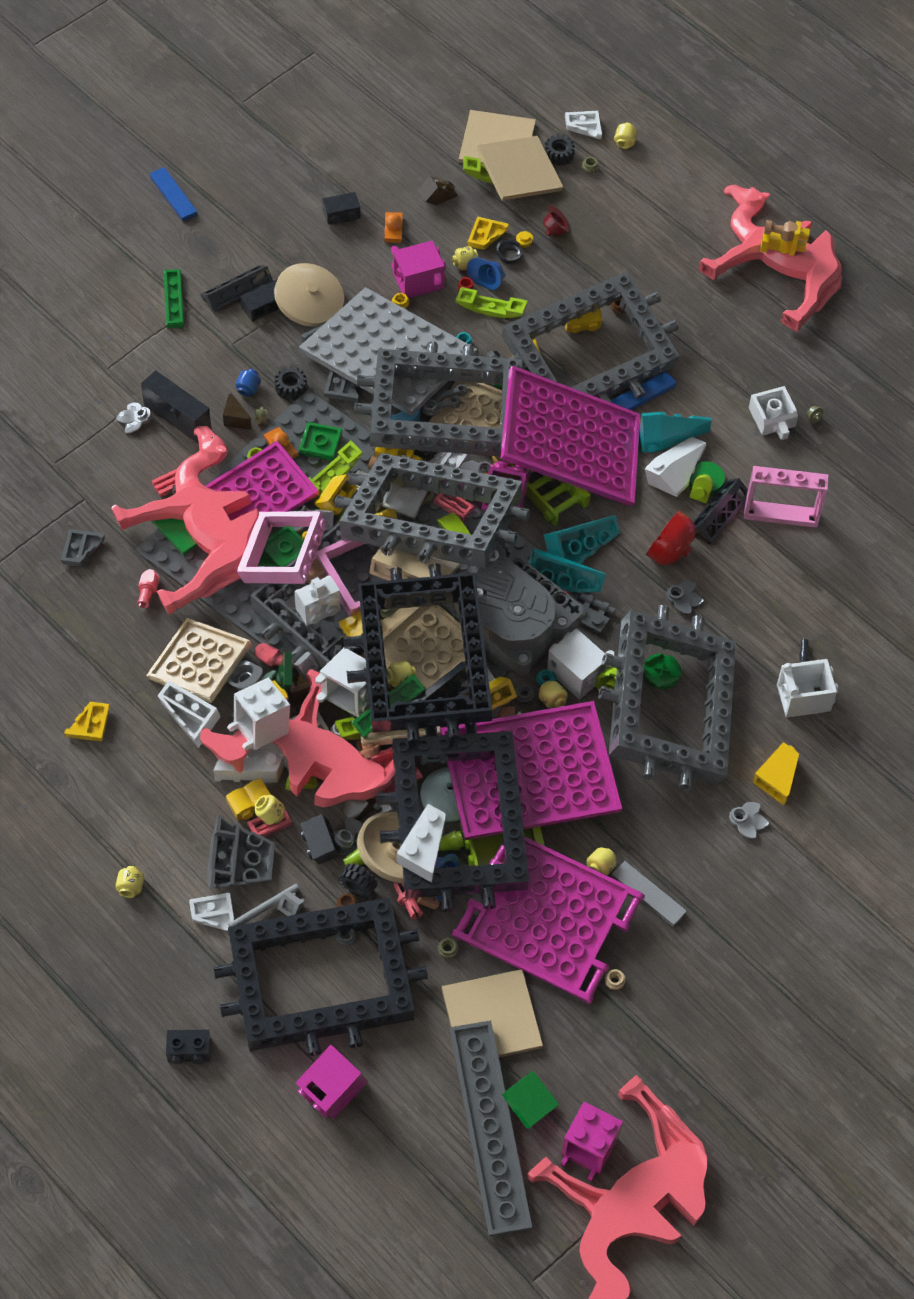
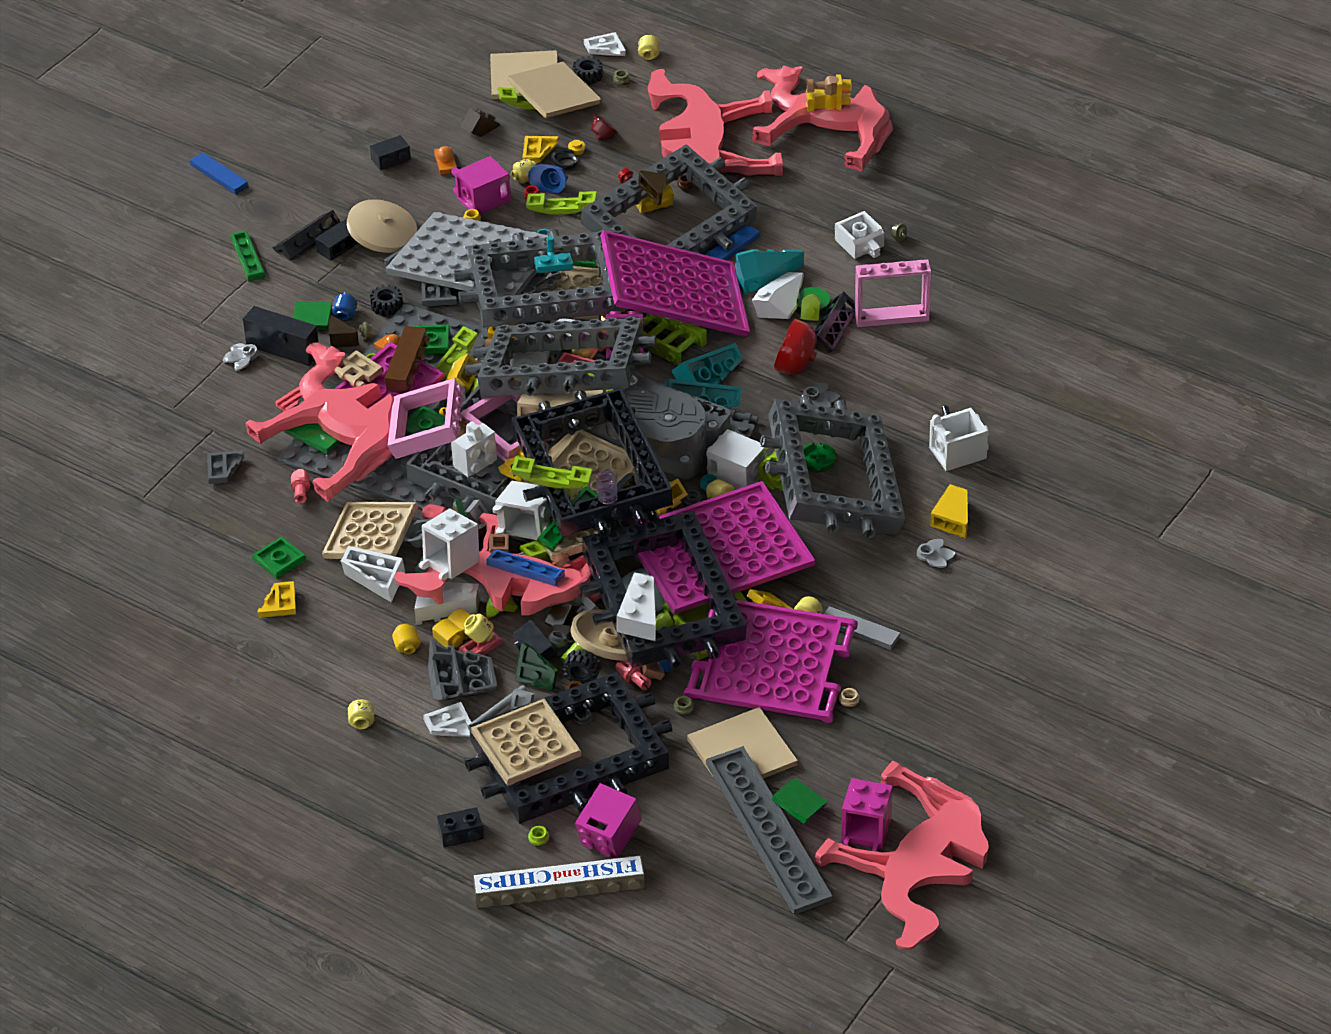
camera: 10 degrees left, 15 degrees down
(105, 668) = (279, 557): none -> green tile
(198, 800) = (406, 638): none -> yellow head
(215, 384) = (314, 313): none -> green tile
(240, 464) = (360, 365): none -> tan plate
(262, 1068) = (538, 835): none -> lime plate
(266, 1138) = (559, 881): none -> brick
(276, 966) = (526, 742): none -> tan tile
(285, 468) = (406, 359): none -> reddish brown brick
(312, 870) = (535, 669): none -> dark green wing
(314, 715) = (499, 542): none -> nougat slope
(331, 753) = (525, 567): none -> blue tile
(374, 666) = (550, 477): none -> lime slope
(426, 696) = (606, 487): none -> clear purple plate
(455, 389) = (552, 261): none -> teal plate
(562, 285) = (624, 175): none -> red plate
(566, 843) = (766, 598): none -> yellow wing
(580, 314) = (653, 184): none -> dark brown slope
(653, 245) = (703, 126): none -> coral animal

